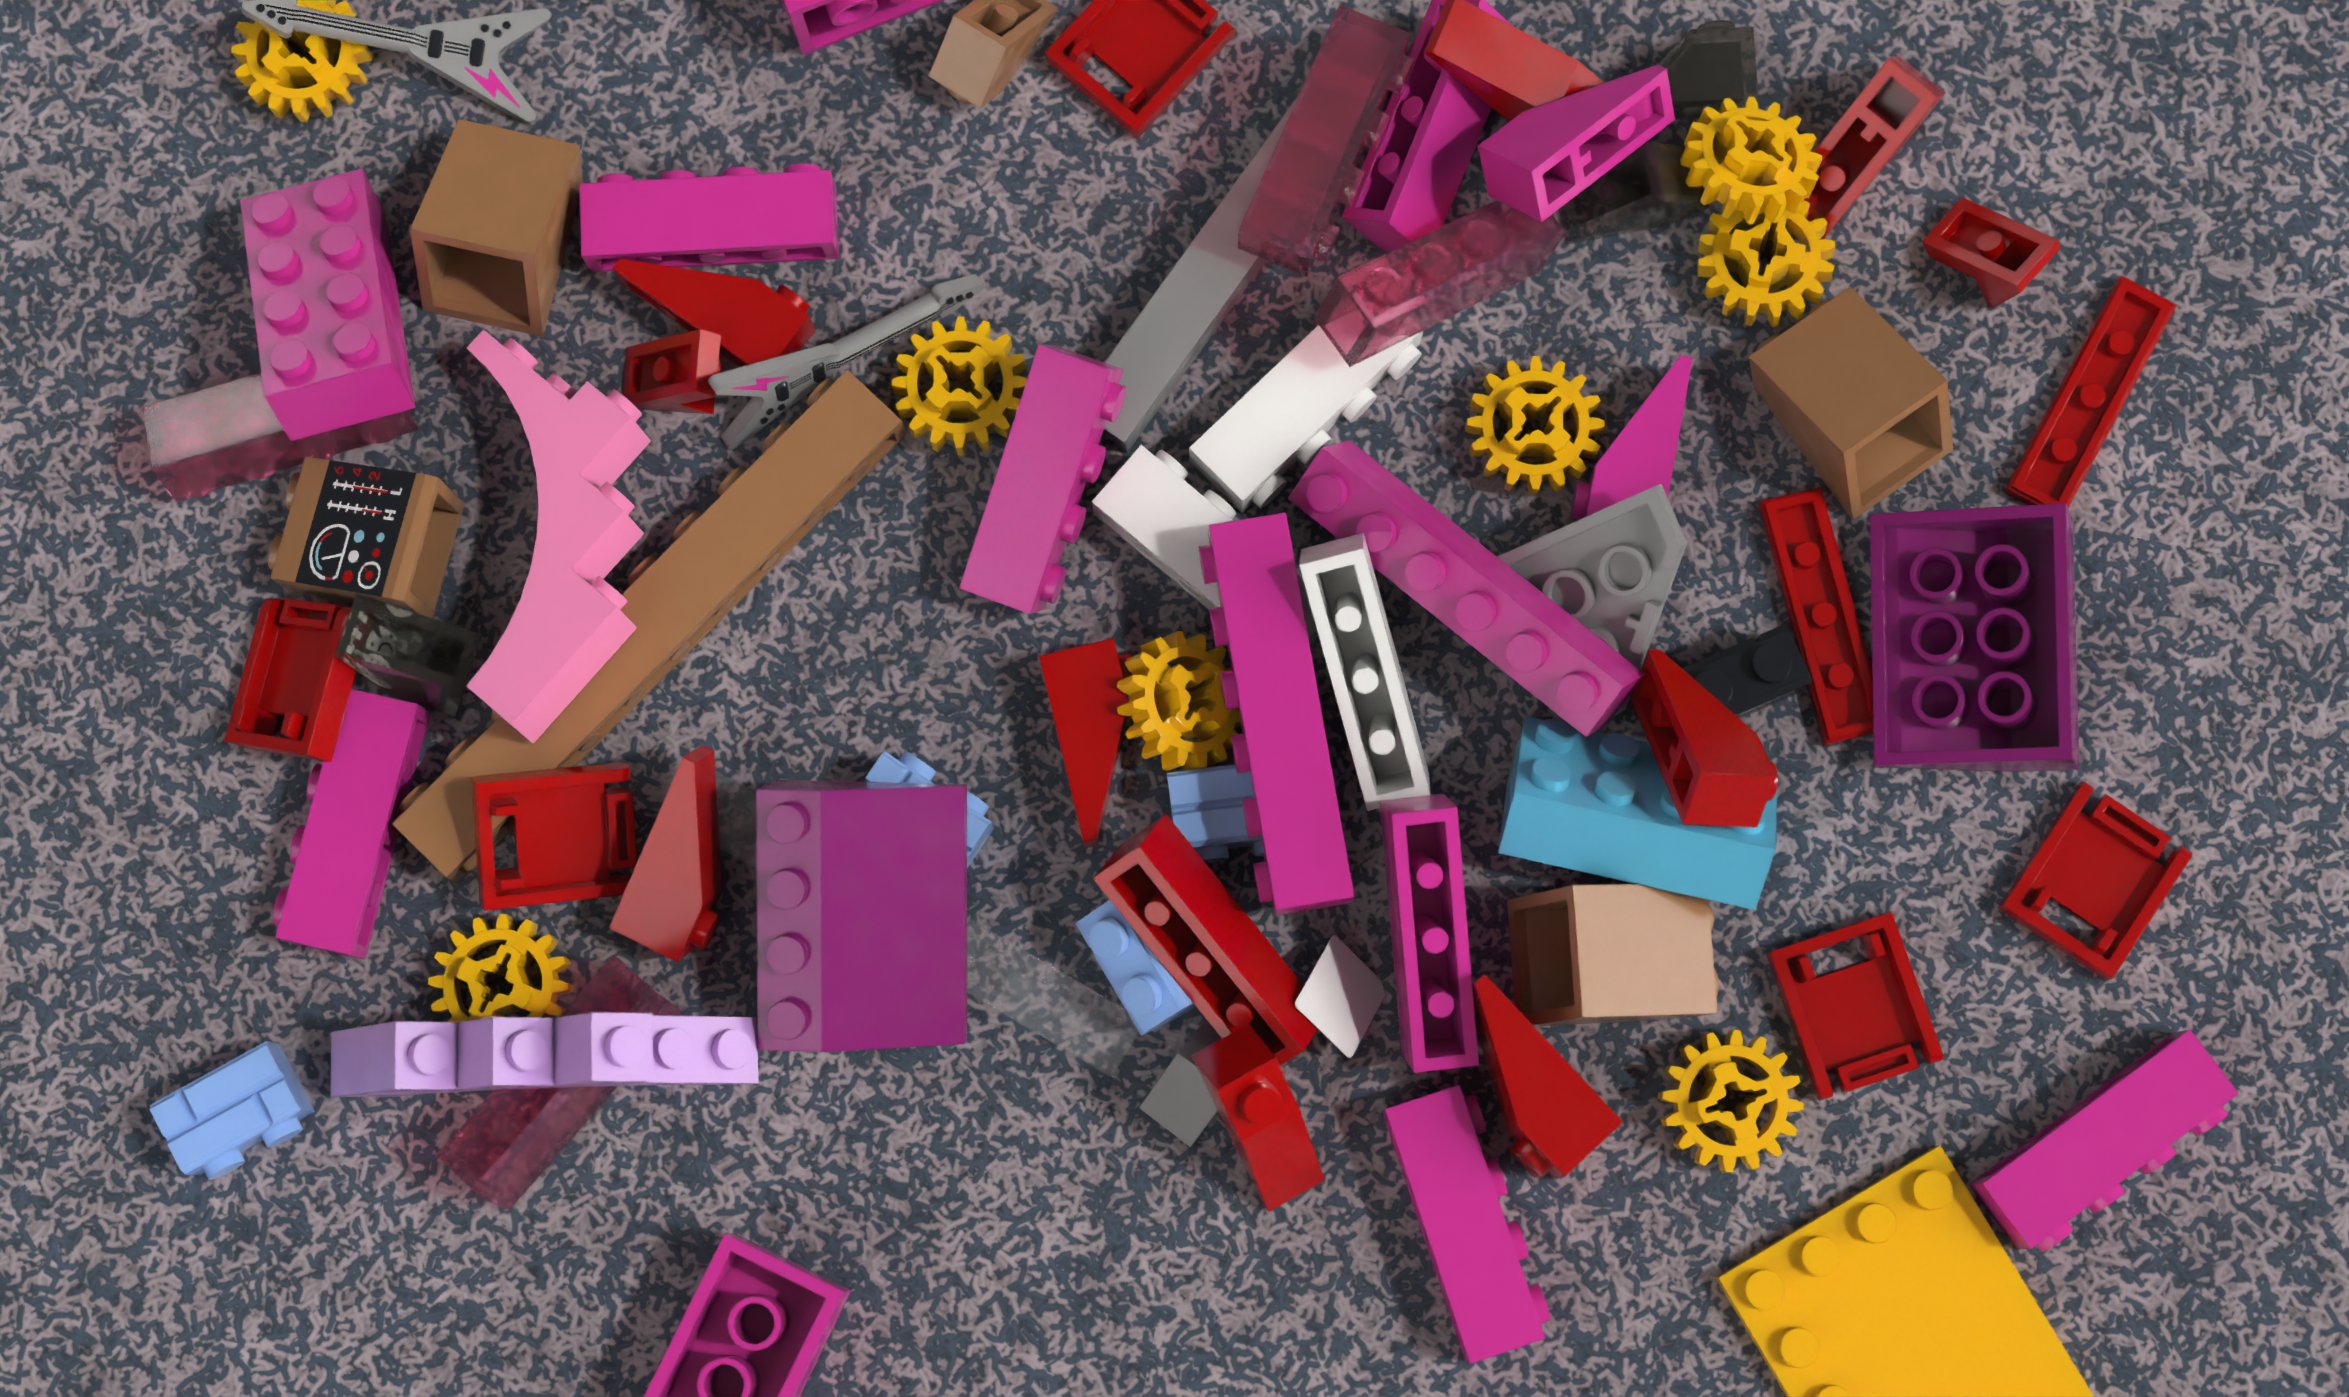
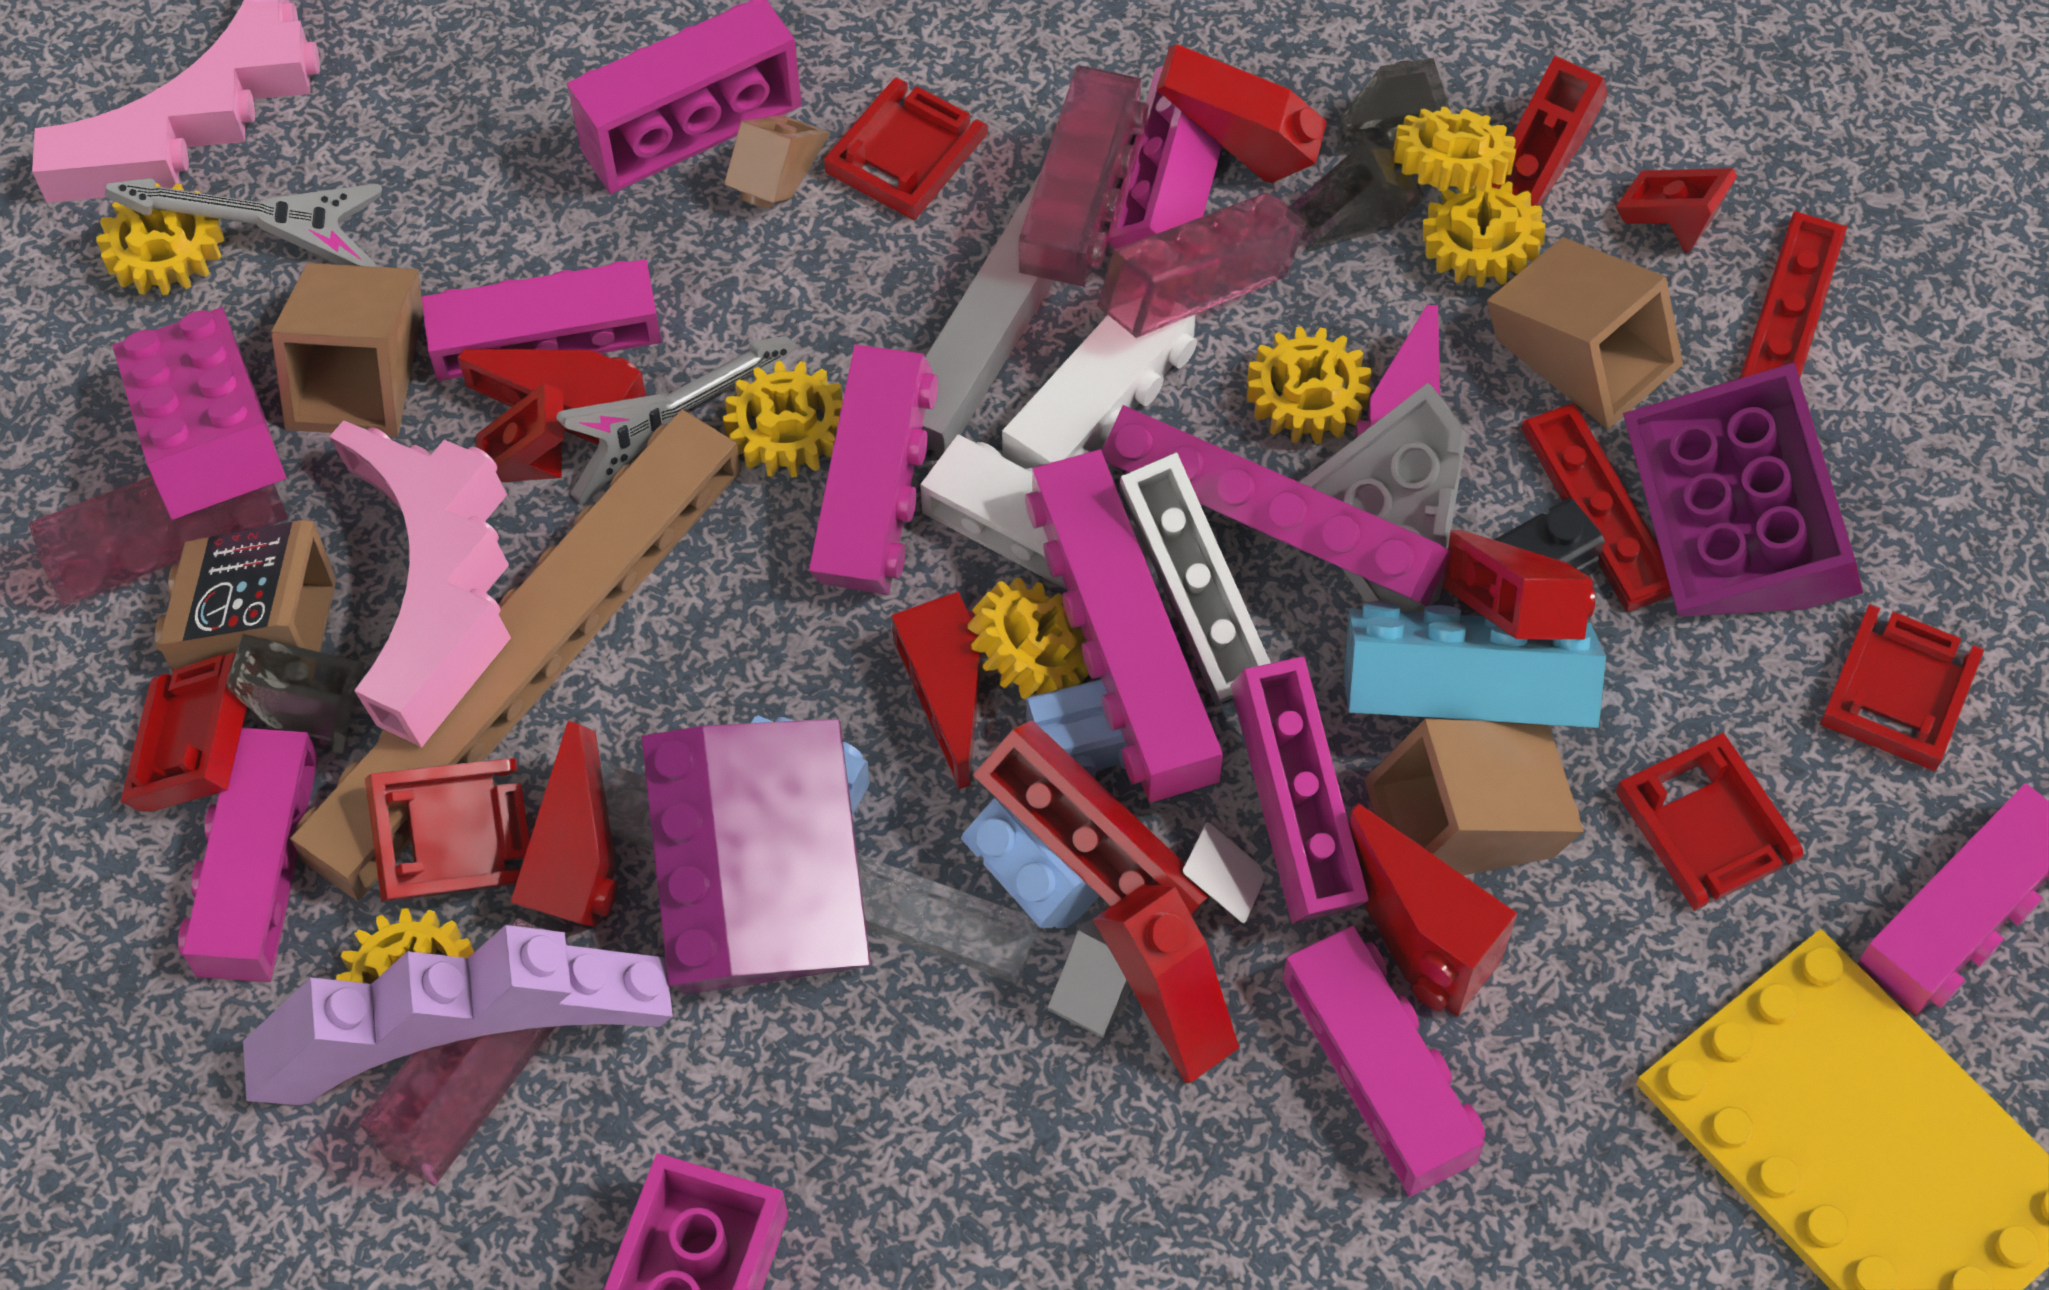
camera: 10 degrees left, 20 degrees down
(233, 1110) = (148, 1130): light blue brick -> none
(1571, 142) = (1299, 143): dark pink slope -> none
(1740, 1130) = (1608, 939): yellow gear -> none

